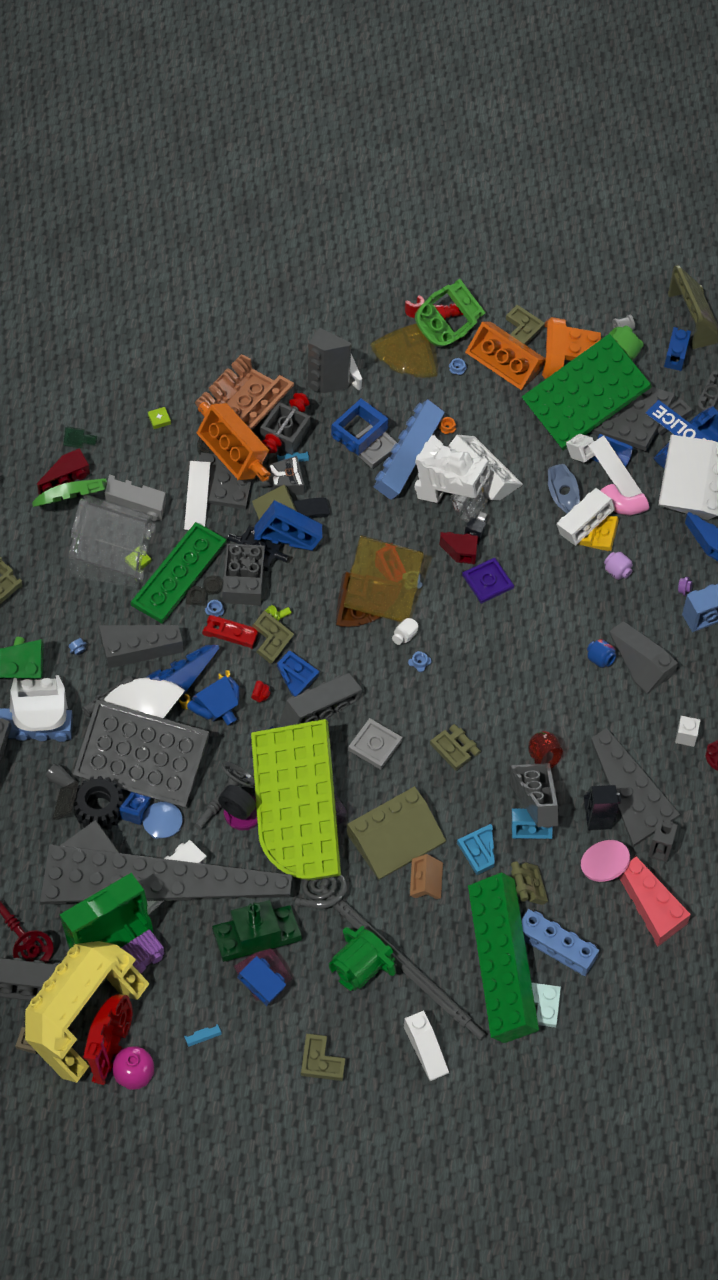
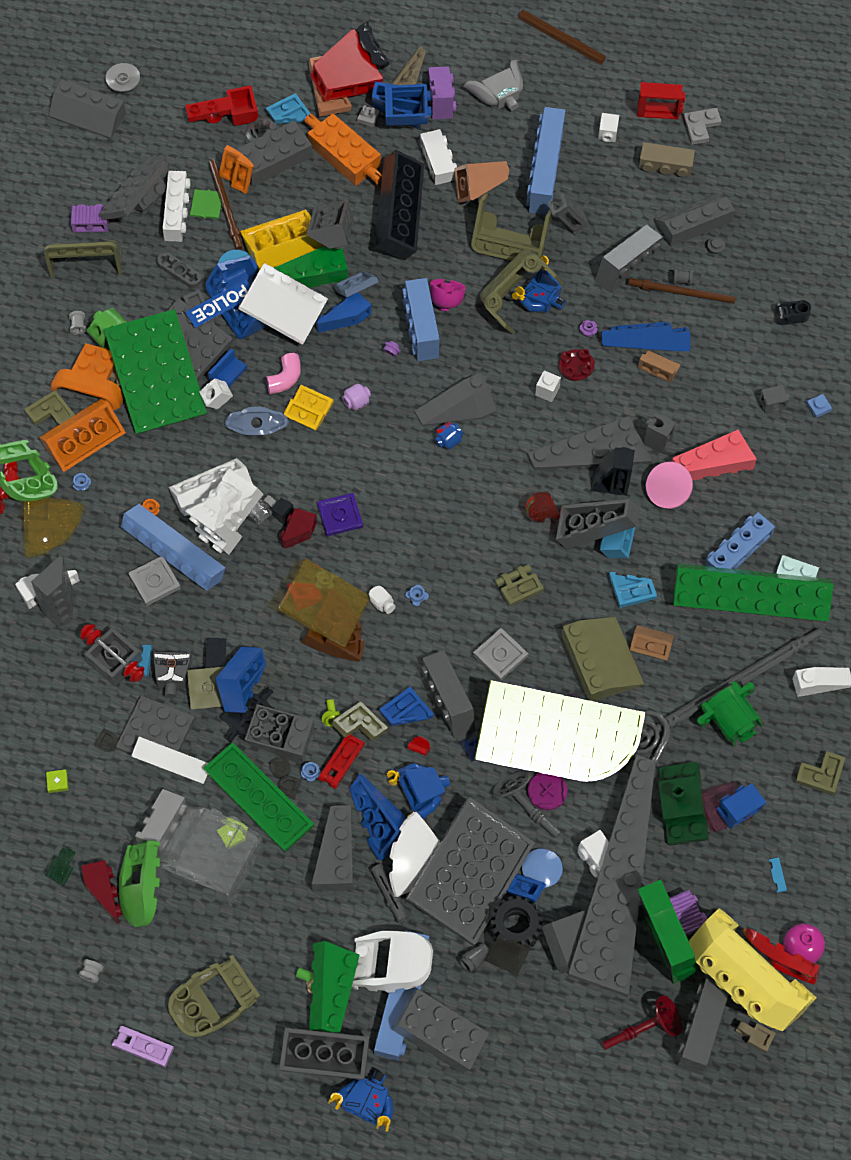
camera: 75 degrees left, 5 degrees up
(77, 646) = (323, 914): medium blue plate -> none
(233, 441) = (125, 706): orange brick -> none
(237, 802) = (547, 789): black tyre -> none
(249, 394) = (65, 688): nougat slope -> none
(369, 414) = (125, 571): blue window -> none
(529, 883) = (678, 554): olive plate -> none
(585, 516) = (297, 409): white brick -> none
(614, 467) = (247, 371): white sticker -> none
(677, 348) = (123, 284): blue brick -> none

